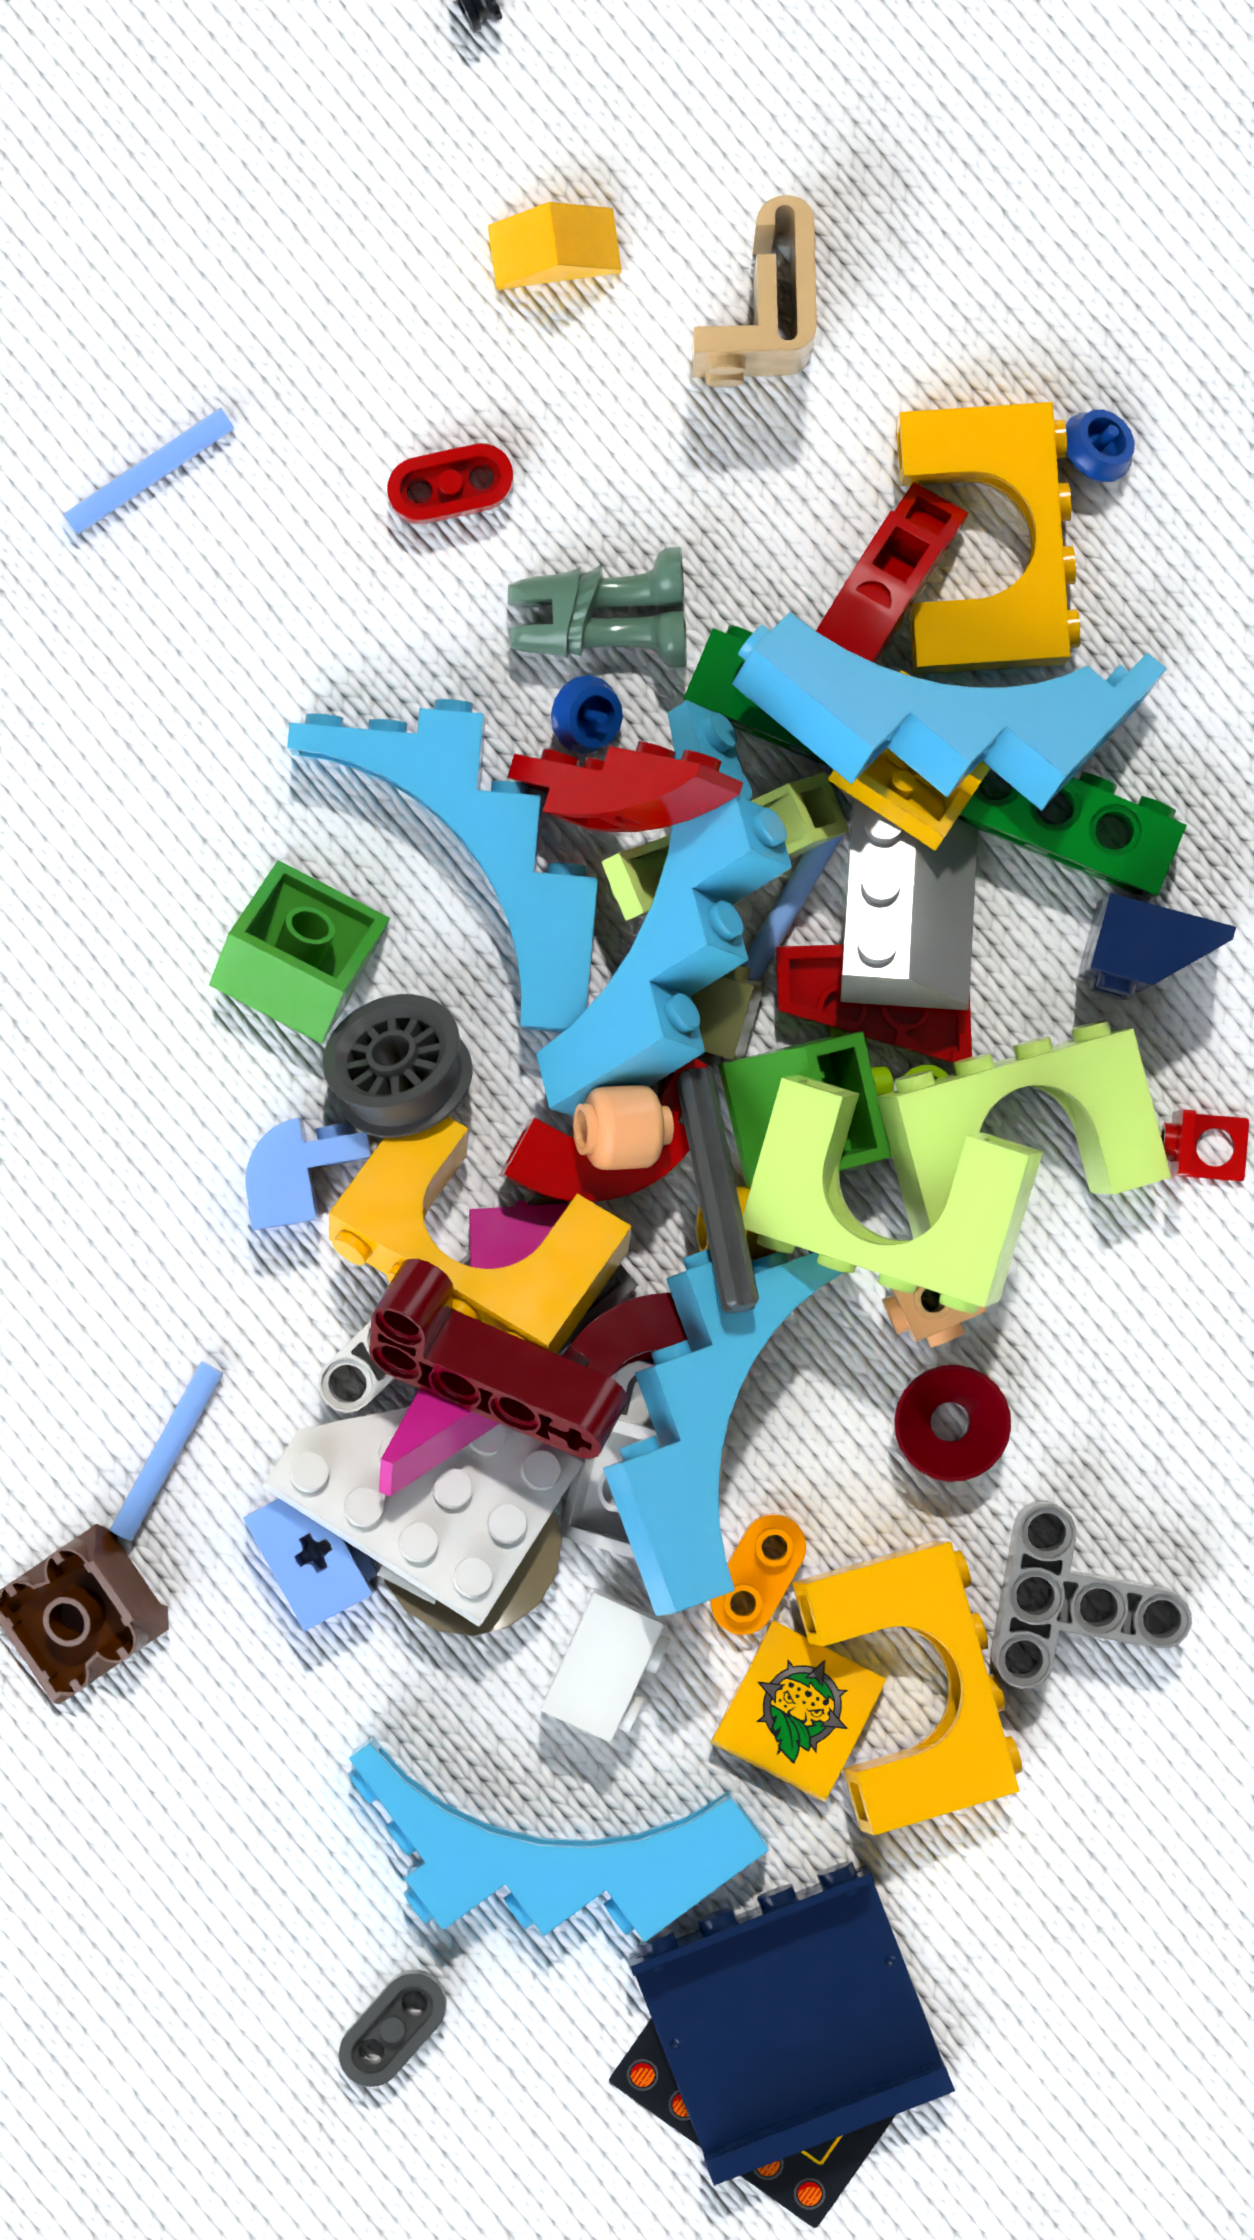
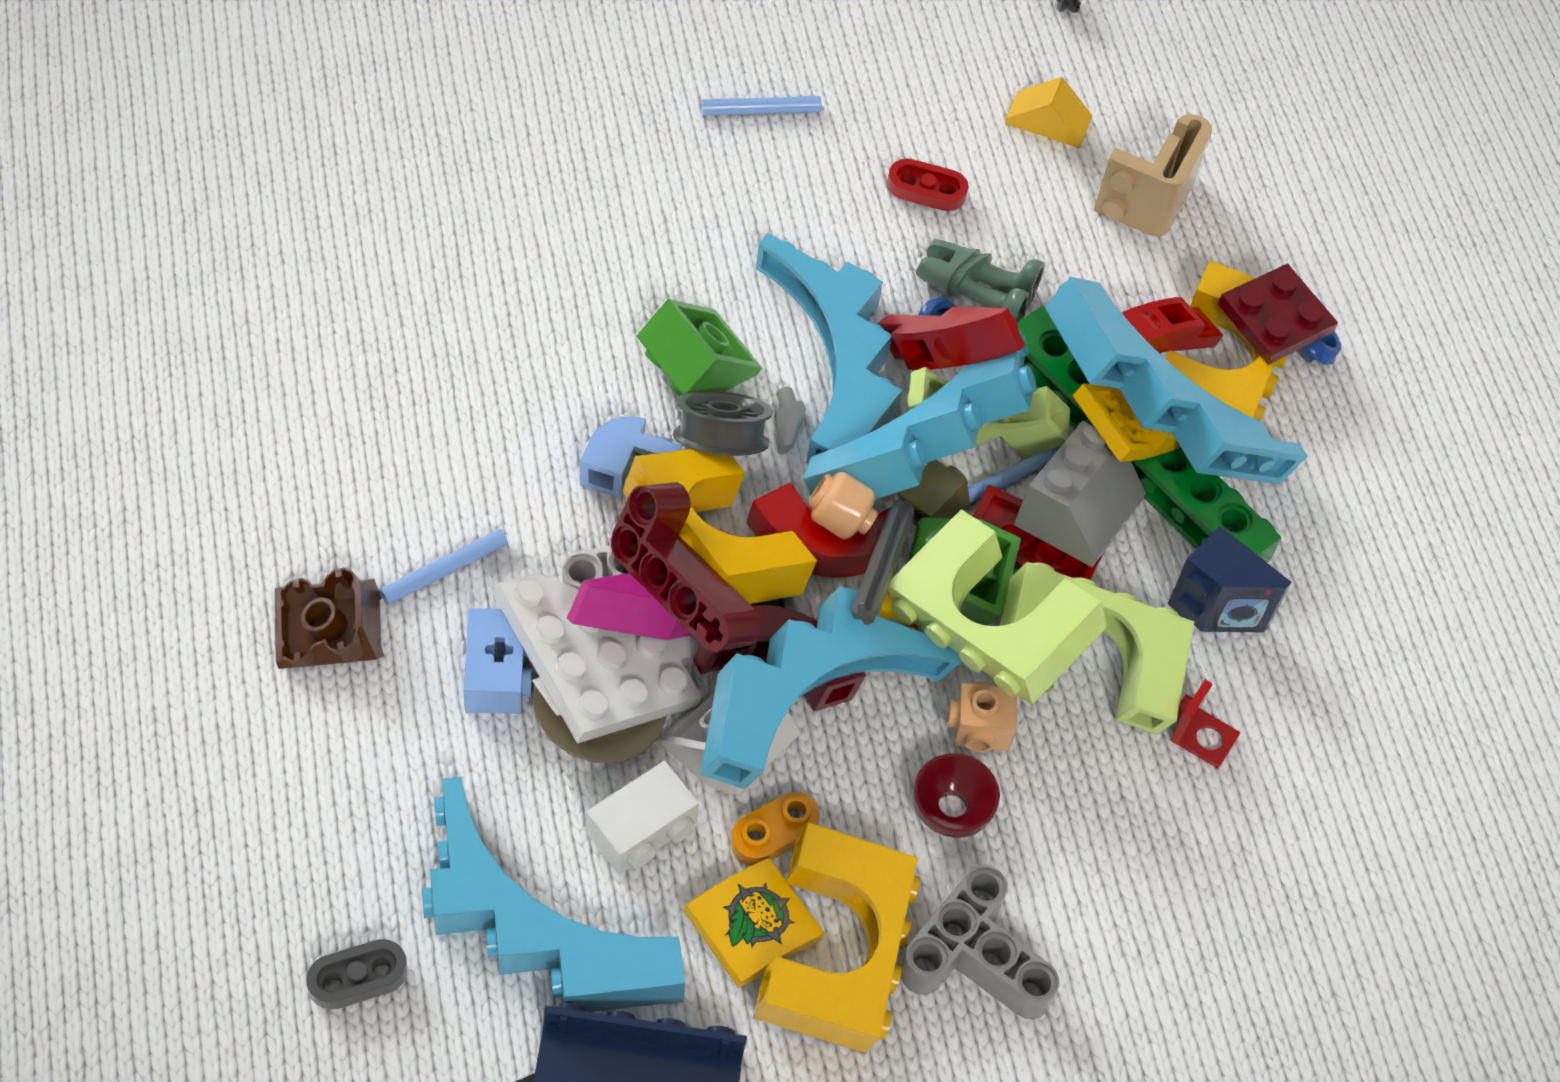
camera: 20 degrees right, 30 degrees down
(467, 983) = (788, 418): none -> light grey bar
(1032, 460) = (1277, 313): none -> dark red plate

